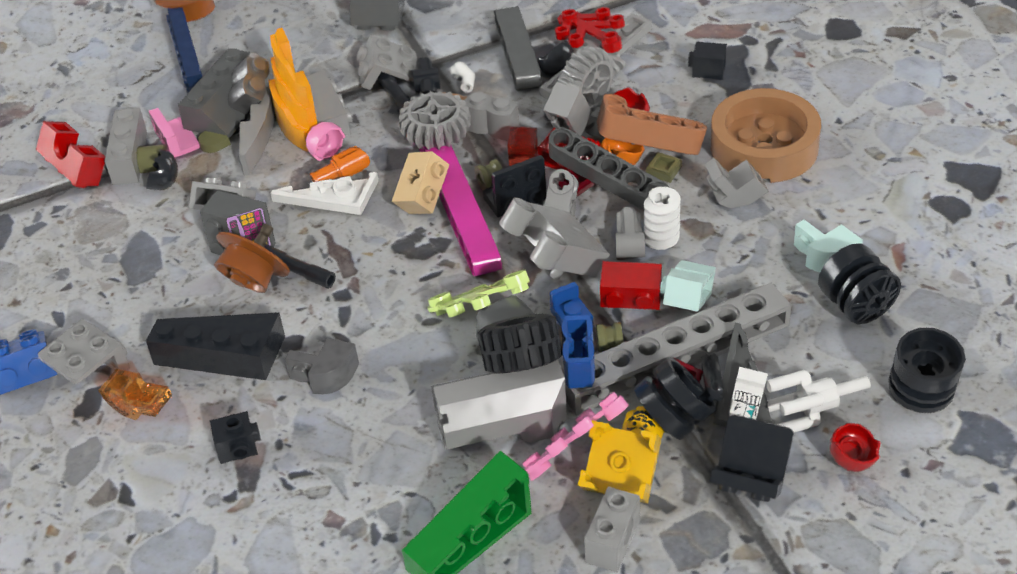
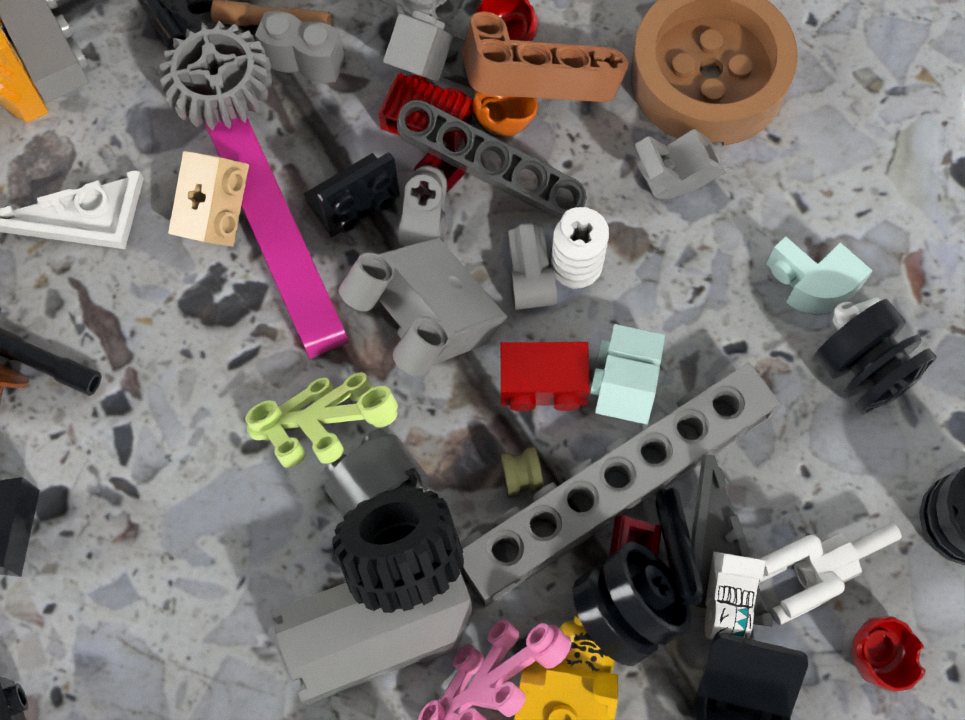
camera: 10 degrees left, 25 degrees up
(324, 140) = (49, 113): bright pink hair -> none
(328, 370) = (117, 559): flat silver brick -> none
(342, 165) = (83, 159): orange arm -> none
(484, 173) = (311, 164): olive wheel -> none
(522, 144) = (355, 109): clear red brick -> none
(566, 302) = (457, 416): blue bracket -> none
(578, 351) = (486, 547): blue brick -> none
(664, 167) = (567, 127): olive tile -> none

